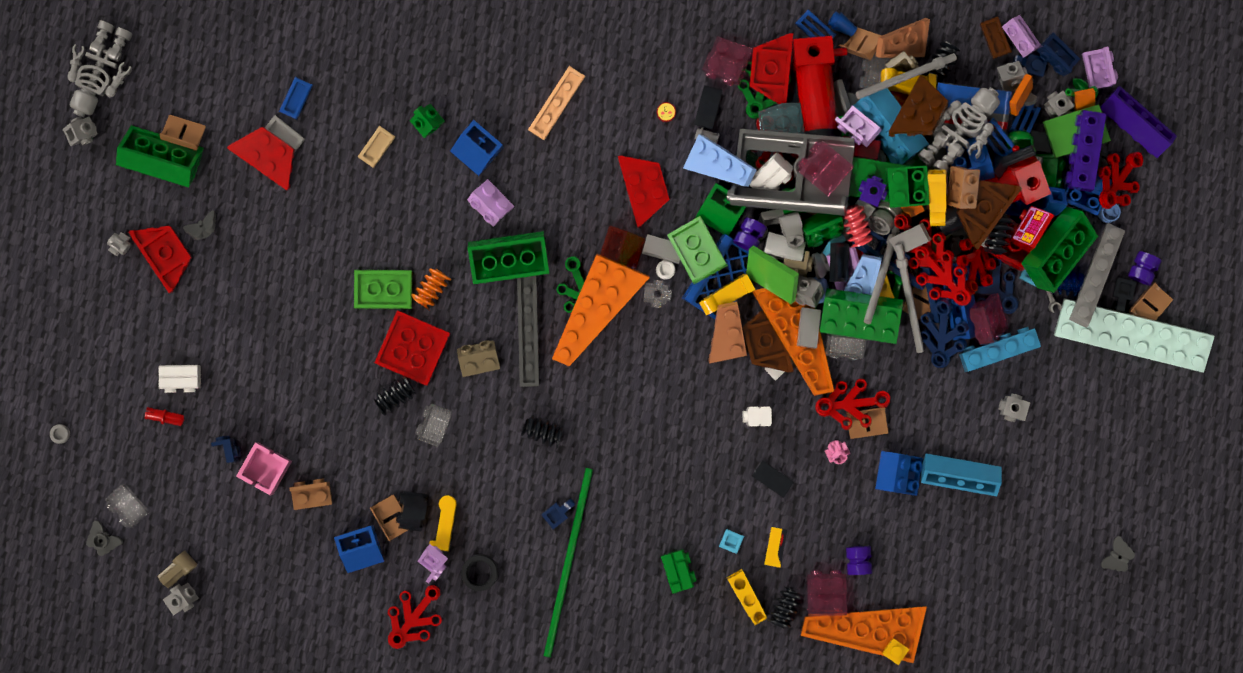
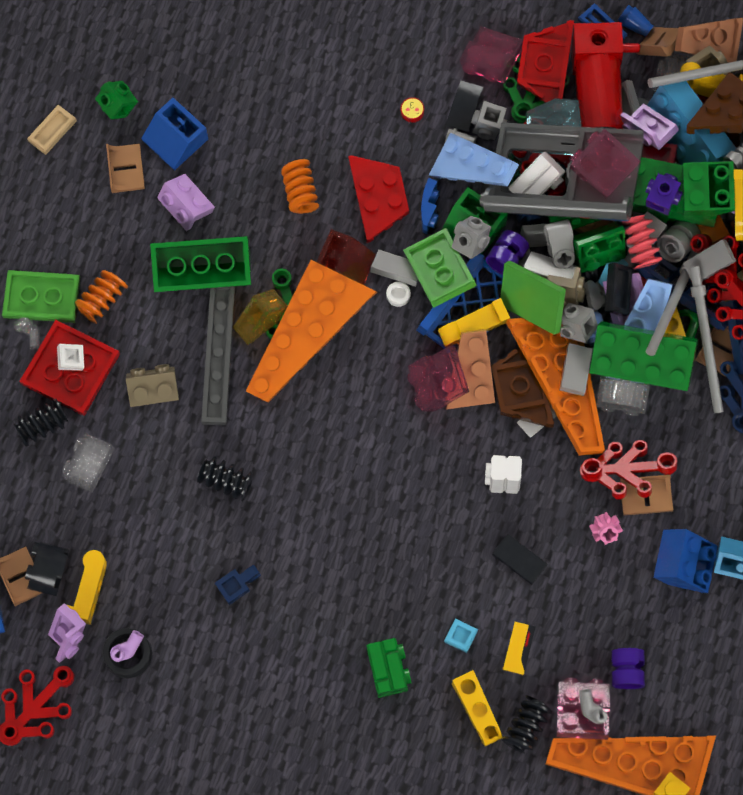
camera: 10 degrees right, 15 degrees down
(378, 318) = (31, 329): none -> clear arm
(412, 342) = (70, 357): none -> white tile
(442, 186) = (125, 157): none -> medium nougat piece
(479, 572) = (126, 649): none -> lavender arm
(556, 103) = (278, 92): light nougat tile -> none
(558, 298) = (260, 315): none -> clear yellow slope
(568, 562) = (244, 651): green piece -> none
(580, 186) = (298, 186): none -> orange piece
(651, 288) = (384, 319): clear brick -> none
(684, 201) = (428, 208): none -> blue slope
(701, 342) = (437, 379): none -> clear pink plate
(721, 226) = (471, 236): none -> light grey brick
(733, 117) = (488, 120): none -> light grey brick
(833, 597) = (590, 709): none -> light grey arm

